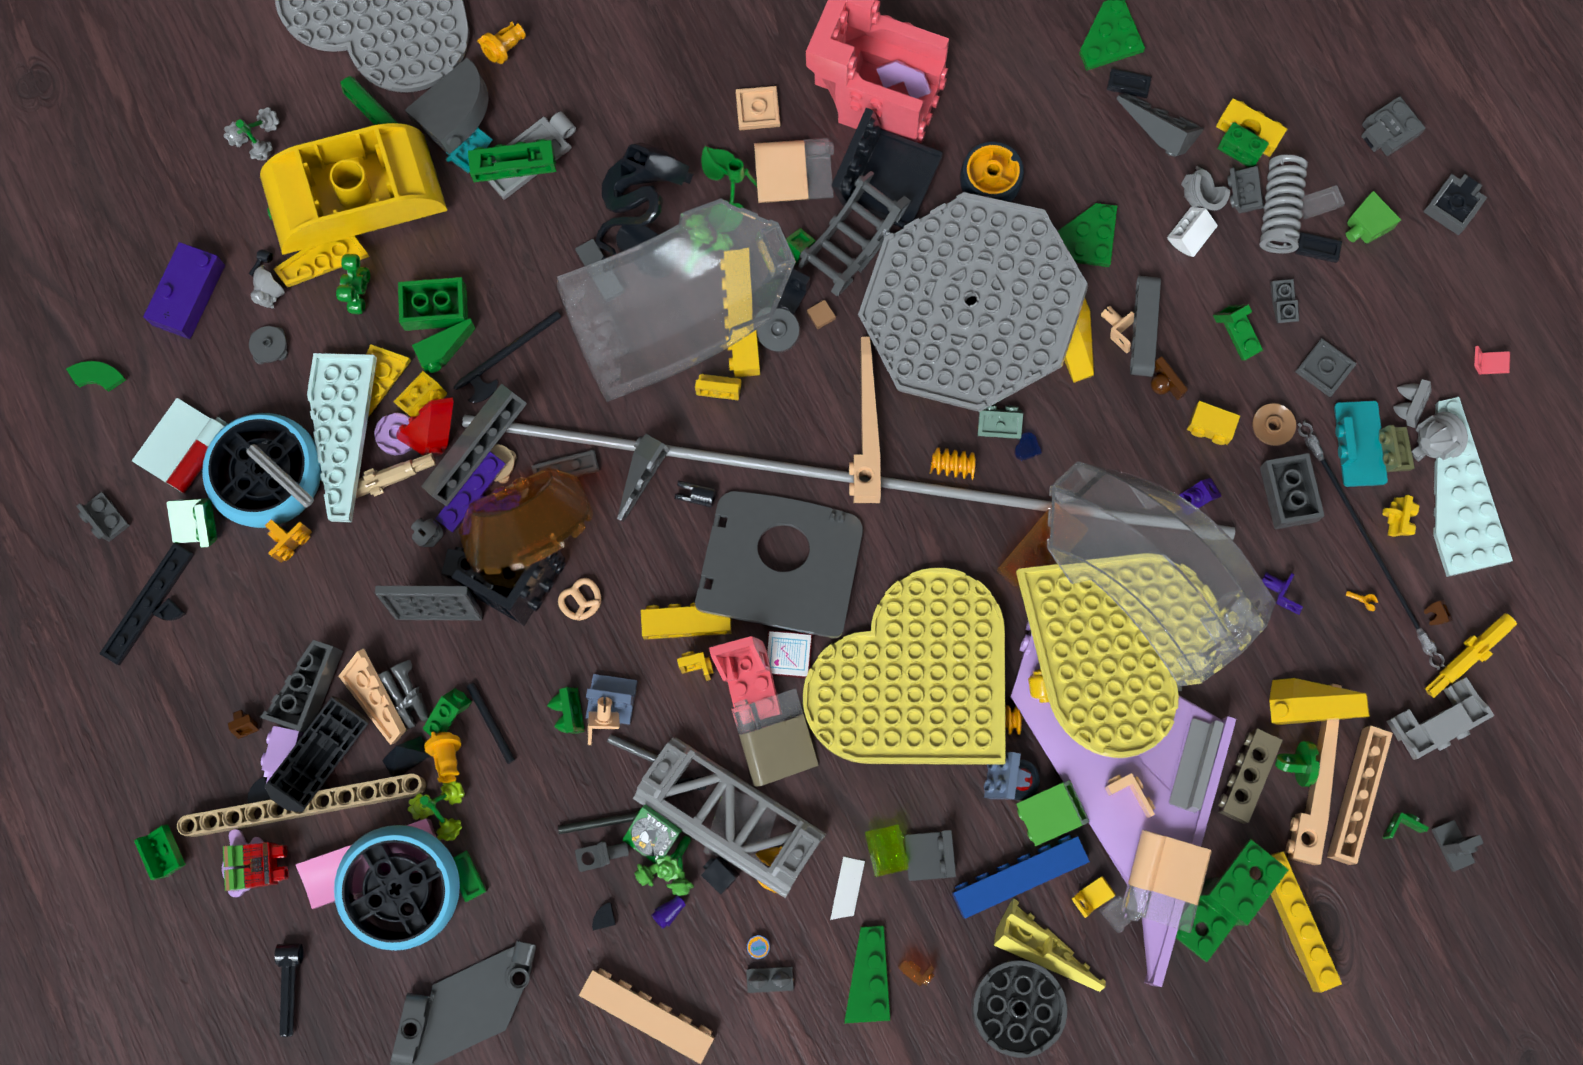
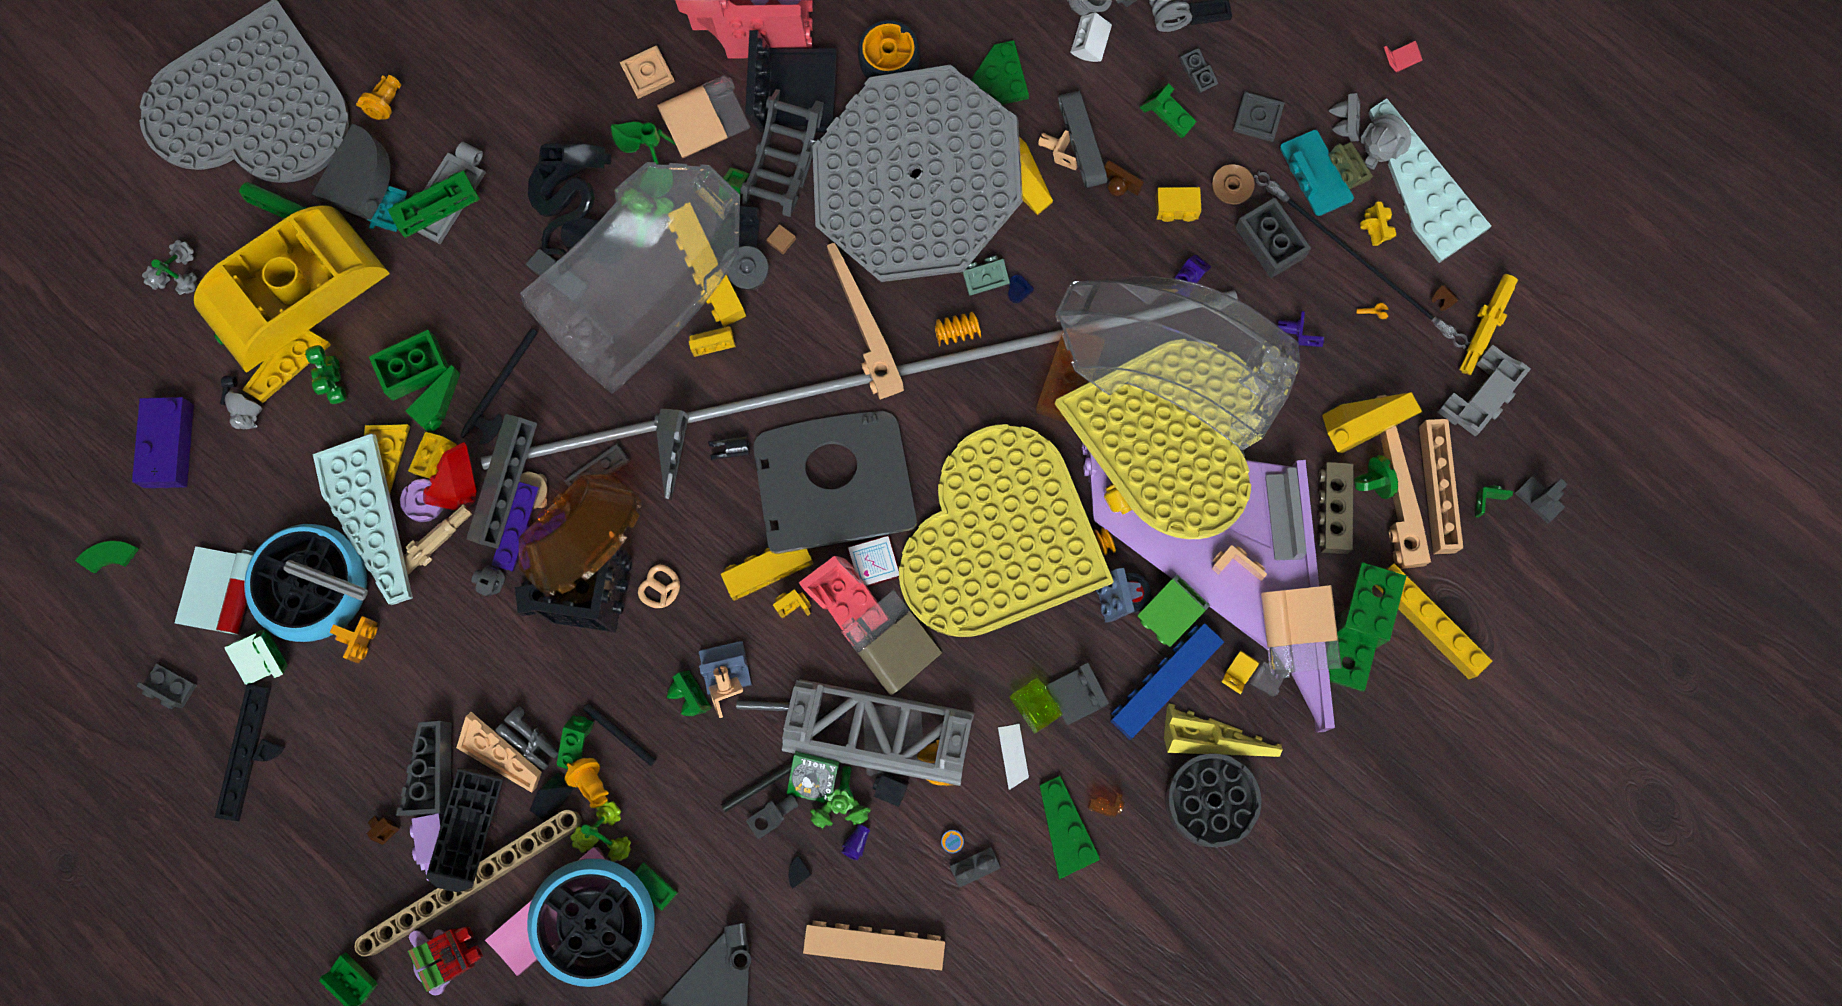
camera: 20 degrees left, 0 degrees up
(258, 792) = (421, 886): black tile -> none
(268, 344) = (265, 463): dark grey piece -> none
(429, 602) = (517, 643): dark grey tile -> none

